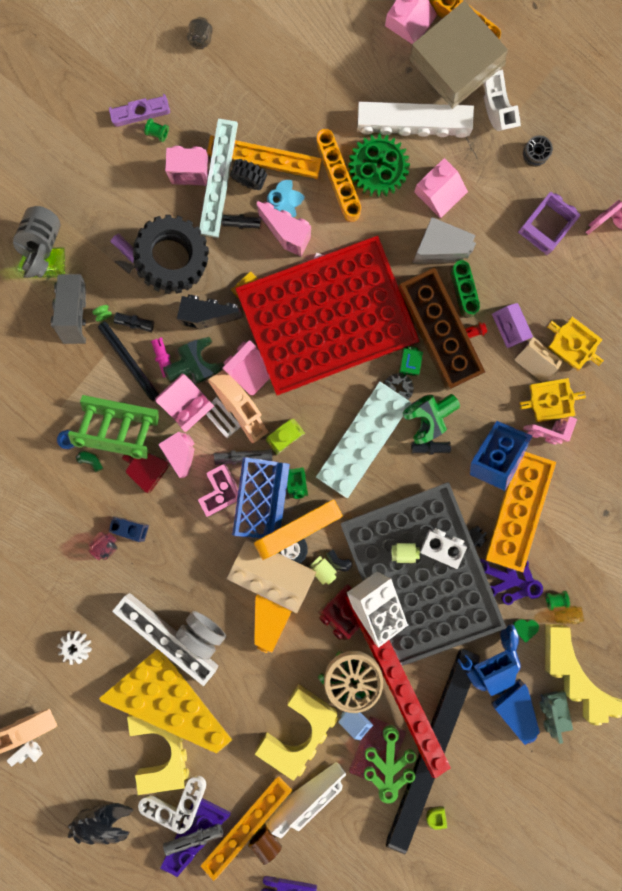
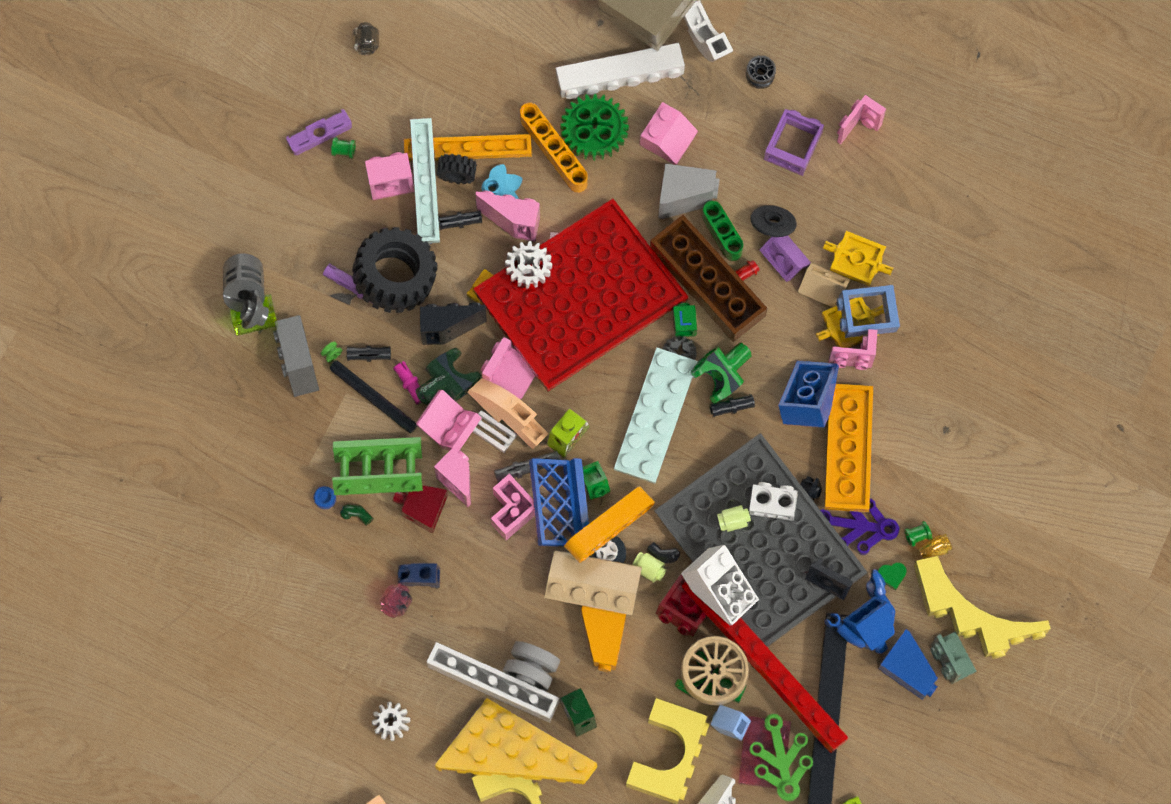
camera: 15 degrees left, 15 degrees down
(230, 679) = (578, 712): none -> dark green torso
(294, 275) = (528, 255): none -> white gear
(468, 625) = (829, 579): none -> black plate
(514, 301) = (785, 220): none -> black wheel
(591, 400) = (890, 309): none -> medium blue window

